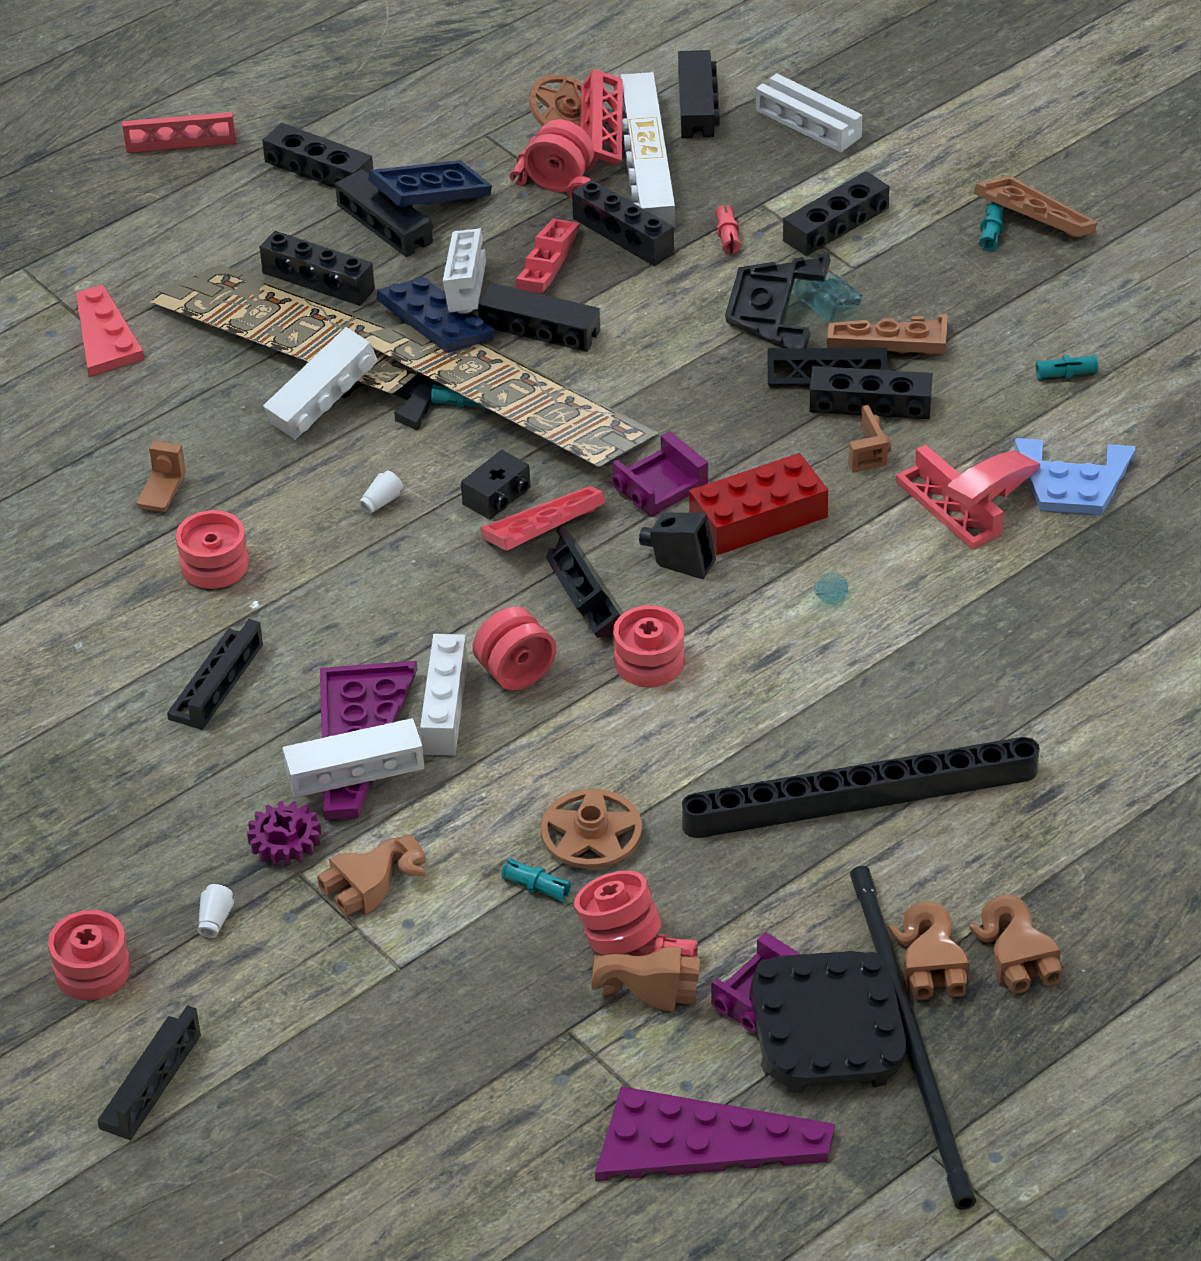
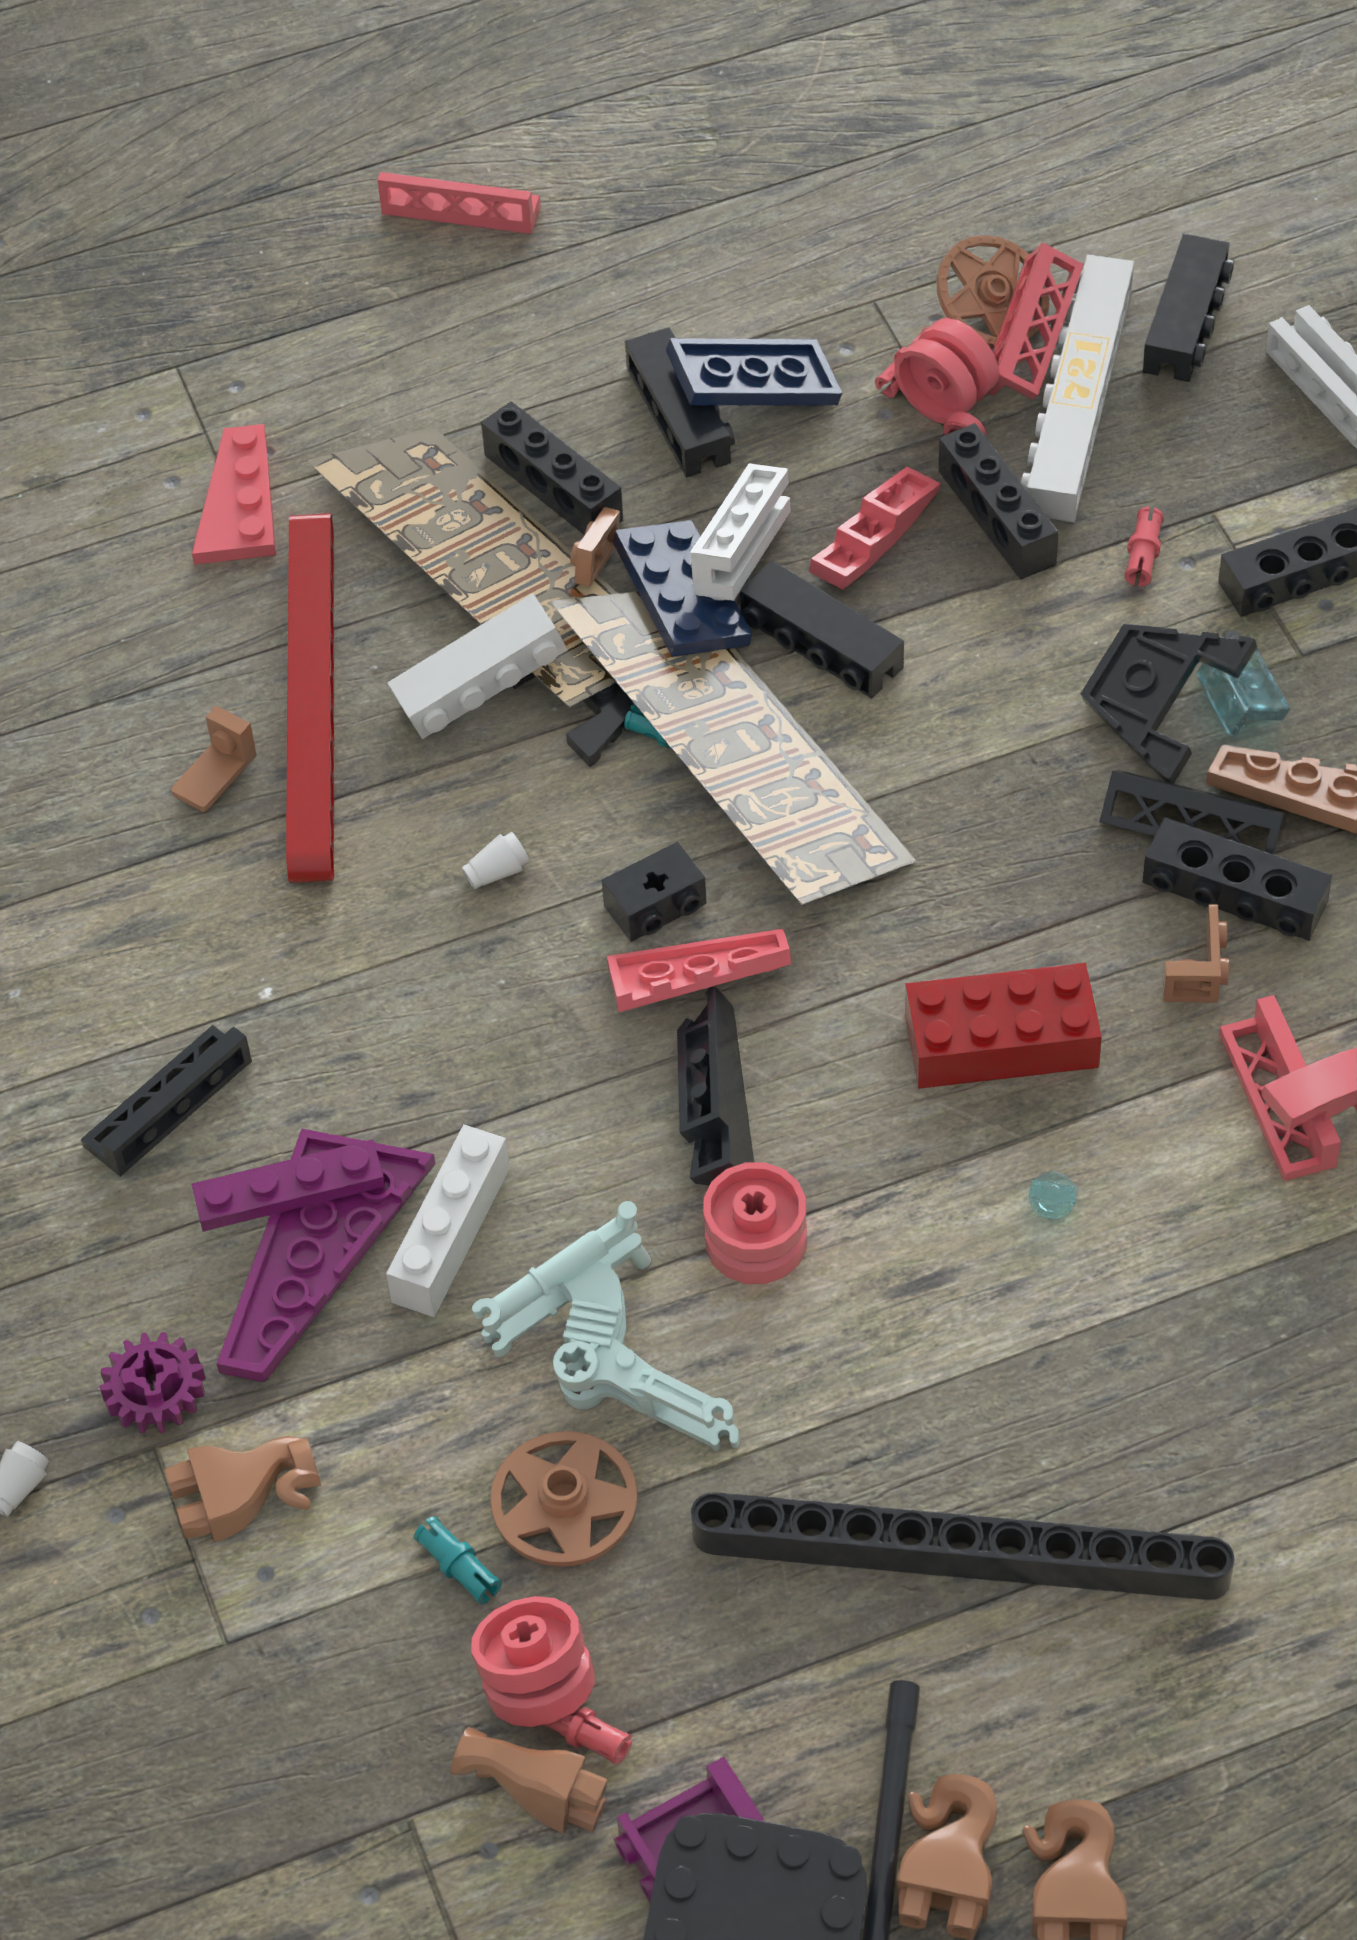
camera: 20 degrees right, 10 degrees up
(210, 429) = (310, 700): none -> red beam
(212, 549) = (233, 897): coral wheel -> none
(313, 155) = (620, 285): black brick -> none
(326, 699) = (288, 1185): none -> magenta plate
(353, 757) = (279, 1295): white brick -> none
(366, 303) = (595, 547): none -> nougat plate
(514, 648) = (564, 1178): coral wheel -> none
(560, 696) = (597, 1331): none -> light aqua piece
(662, 476) = (887, 940): magenta panel -> none
(681, 543) = (866, 1064): black torso -> none

